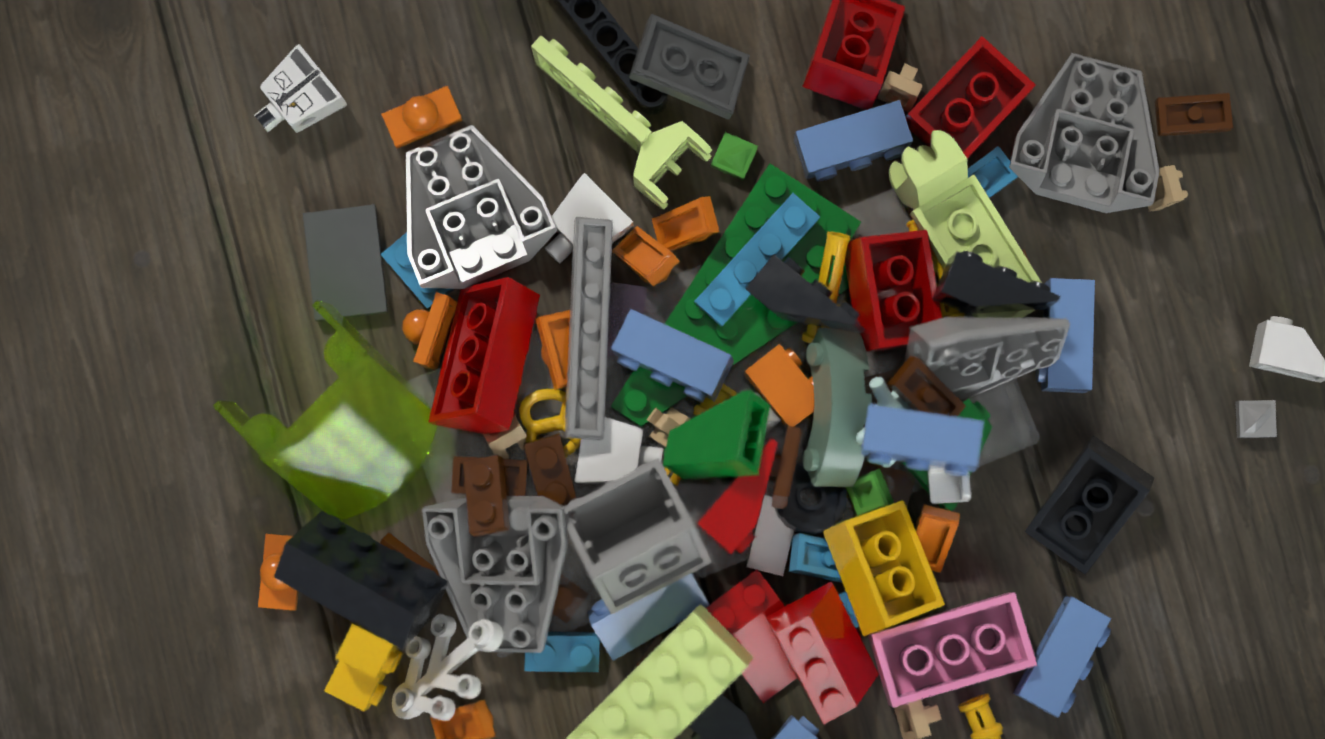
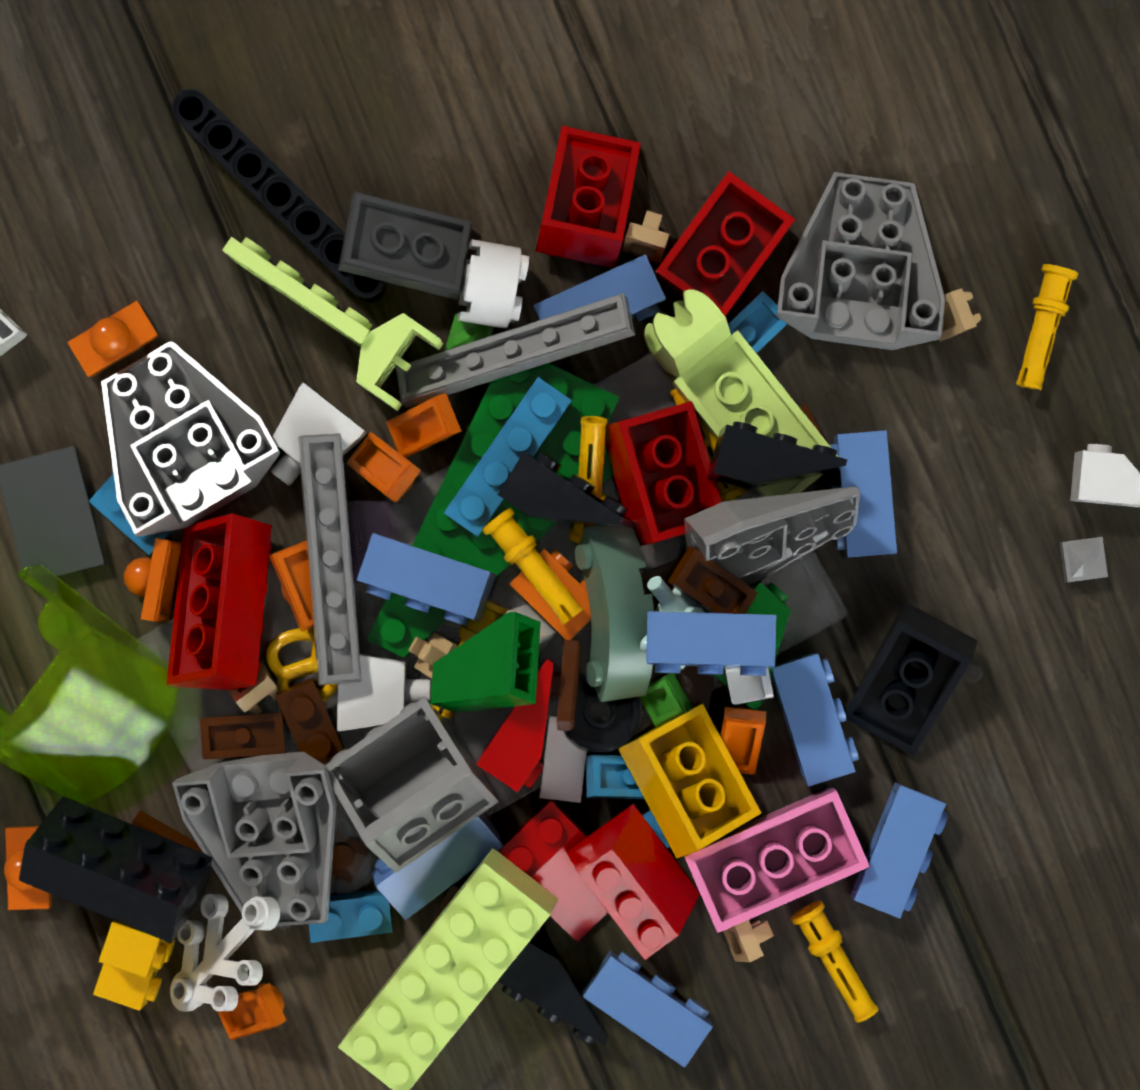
camera: 10 degrees left, 5 degrees up
(486, 495) = (241, 760): reddish brown plate -> none
(759, 341) = (521, 550): none -> yellow pin
(761, 109) = (492, 284): none -> white brick
(776, 167) = (516, 350): none -> light grey tile
(1000, 529) = (813, 718): none -> medium blue brick
(1193, 114) = (977, 225): reddish brown plate -> none
(1249, 193) = (1049, 309): none -> yellow pin

